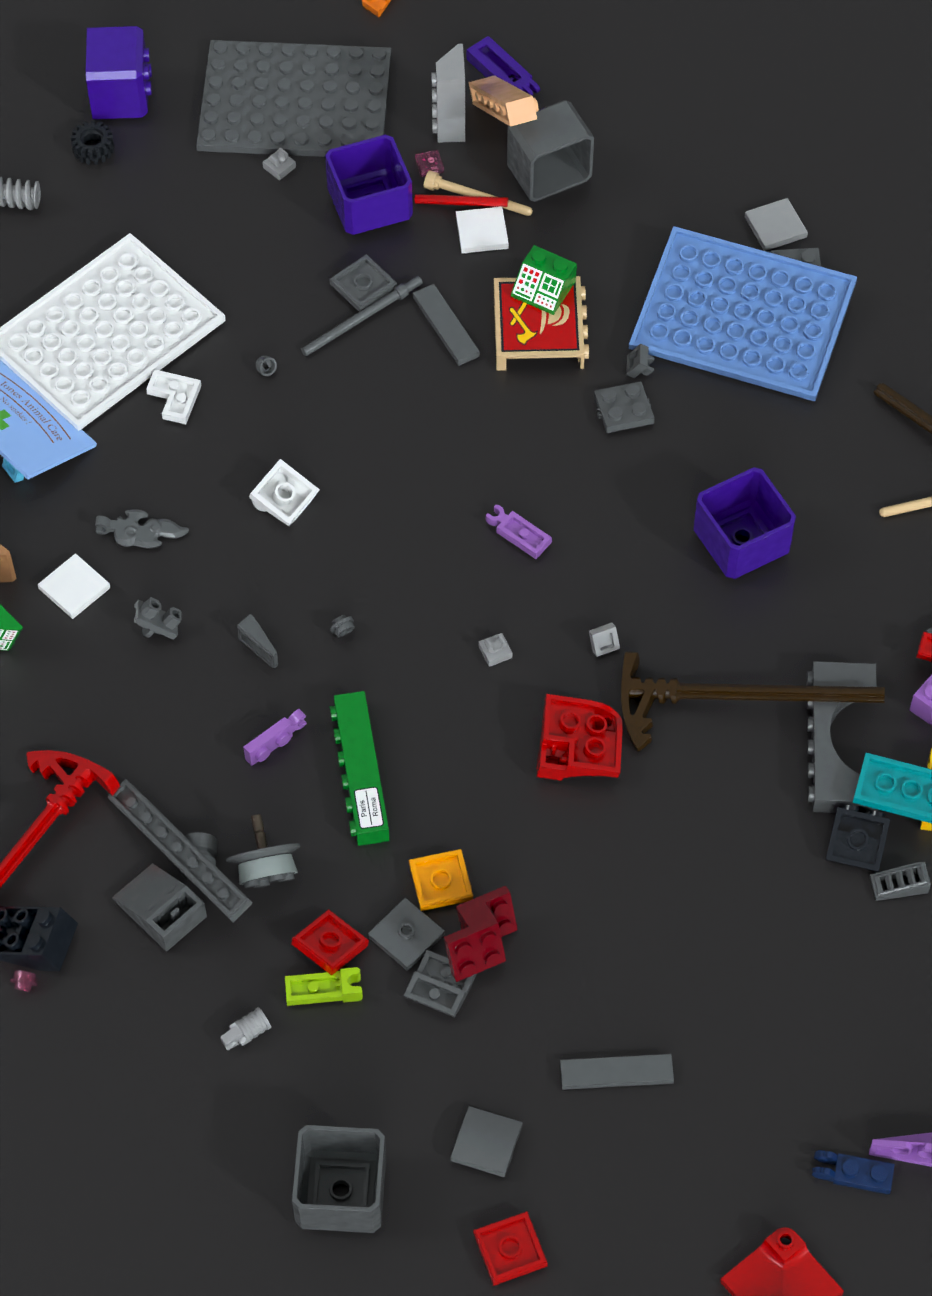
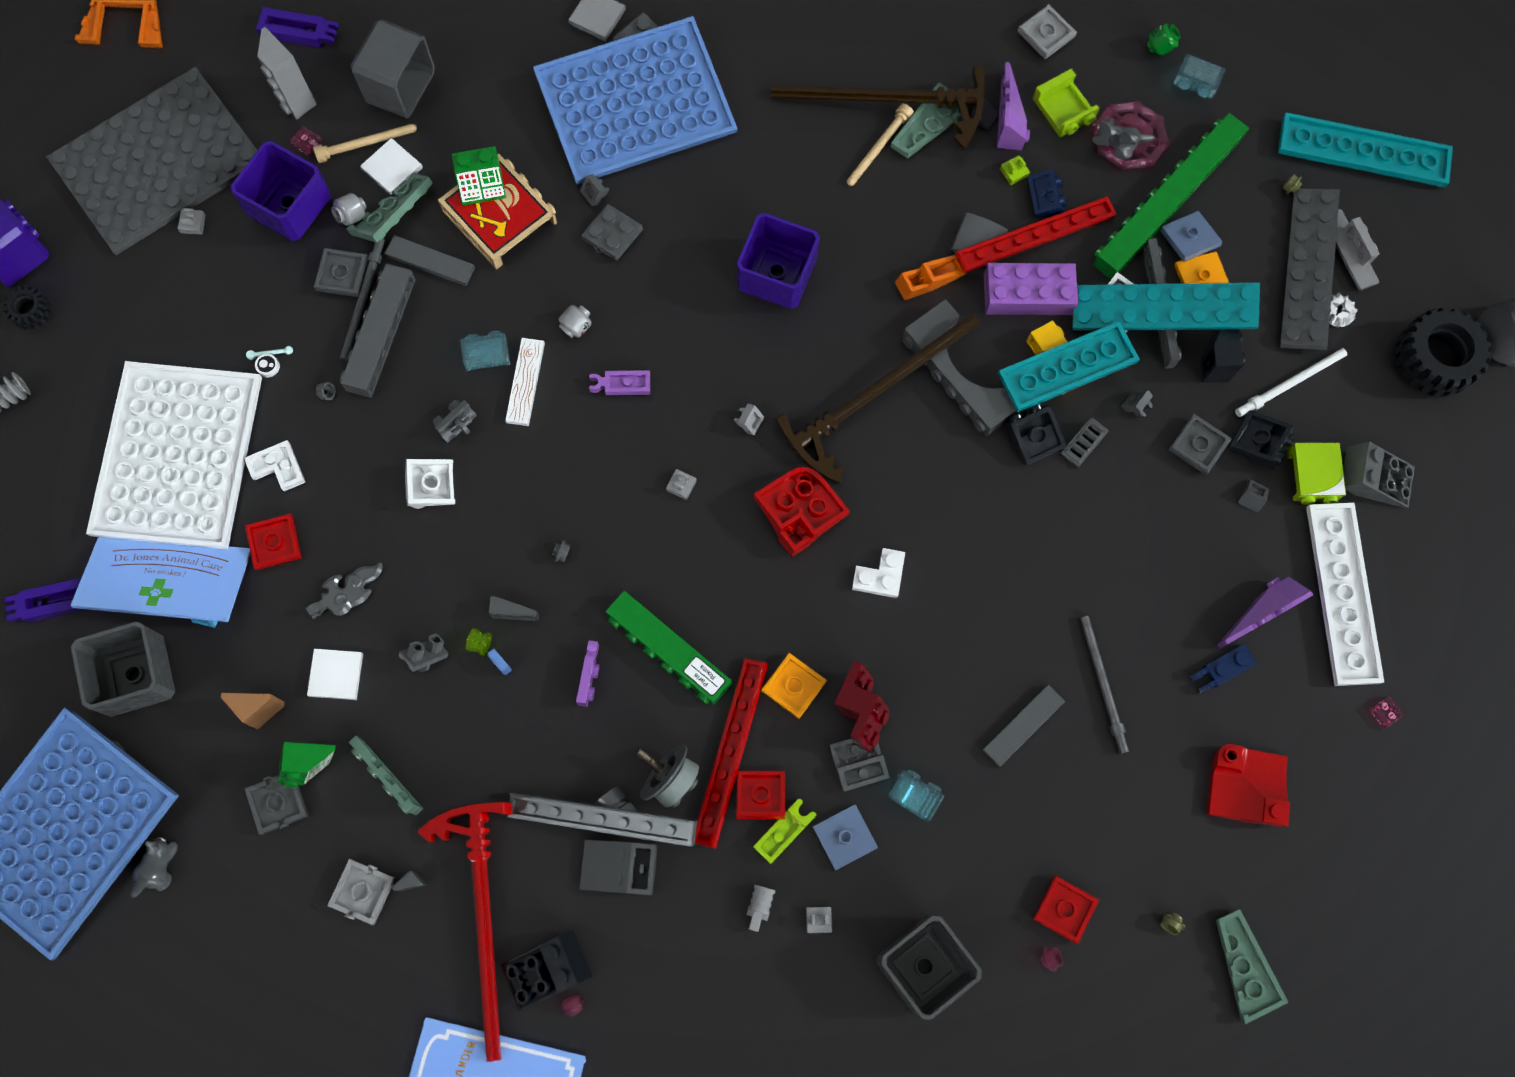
camera: 45 degrees left, 15 degrees up
(40, 698) = (390, 782): none -> sand green wing
(118, 450) = (273, 541): none -> red plate
(209, 645) = (478, 642): none -> clear neon green wheel
(211, 672) = (499, 662): none -> medium blue tile
(232, 298) = (251, 355): none -> light aqua hinge
(238, 314) = (267, 365): none -> white tile
(286, 1082) = (819, 920): none -> light grey tile
(335, 890) = (730, 753): none -> red tile
(349, 461) = (456, 421): none -> dark grey hips
(351, 348) = (377, 331): none -> dark grey brick
(371, 1035) = (845, 837): none -> sand blue plate
(406, 934) = (804, 744): dark grey plate -> none
(414, 238) = (348, 209): none -> light grey head
(425, 425) = (485, 351): none -> clear light blue brick
(437, 474) = (525, 382): none -> white tile
(450, 261) = (391, 209): none -> sand green wing
(459, 1276) = (1052, 958): none -> clear pink plate
(461, 200) = (356, 154): red bar -> none
(463, 1048) = (916, 795): none -> clear light blue brick
(486, 1141) = (986, 848): dark grey slope -> none
(503, 100) = (331, 52): light nougat brick -> none
(523, 454) = (575, 321): none -> light grey head
(604, 858) = (882, 581): none -> white plate
(702, 1139) = (1117, 728): none -> flat silver bar
(881, 639) = (928, 277): none -> orange slope

